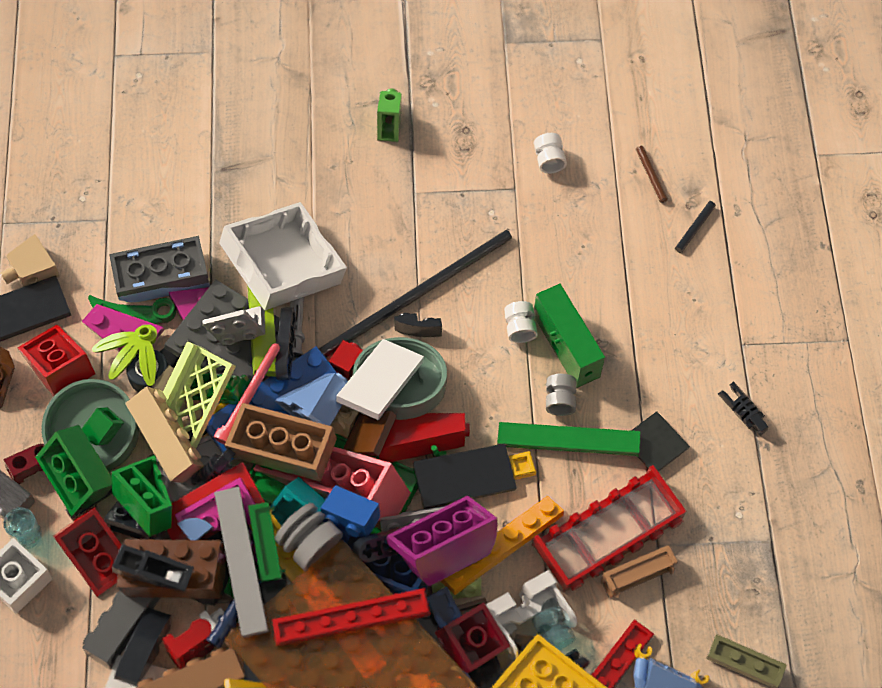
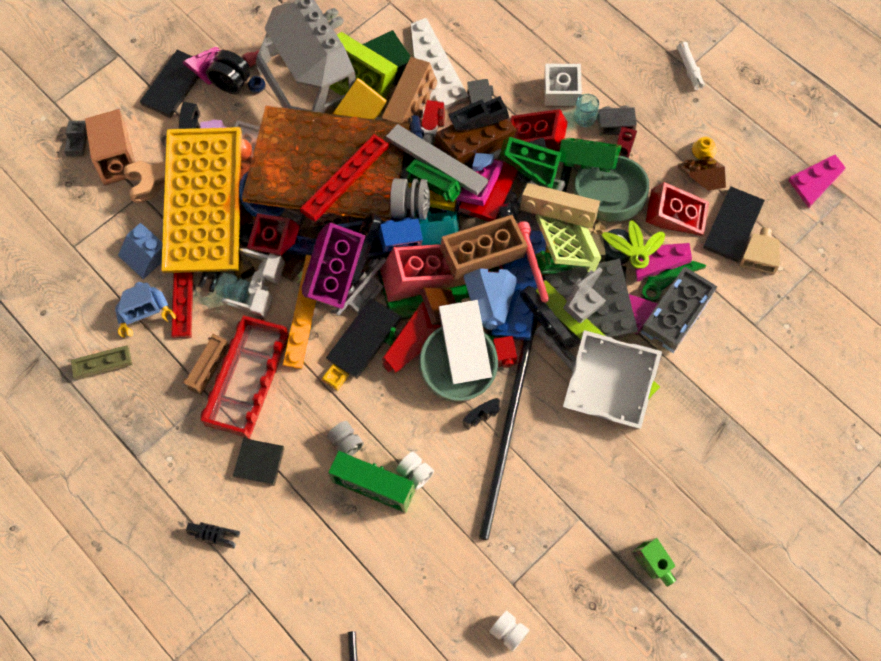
camera: 145 degrees right, 5 degrees up
(102, 426) = (603, 187): green brick -> none
(143, 647) = (452, 94): black slope -> none
(569, 438) = (316, 415): green tile -> none

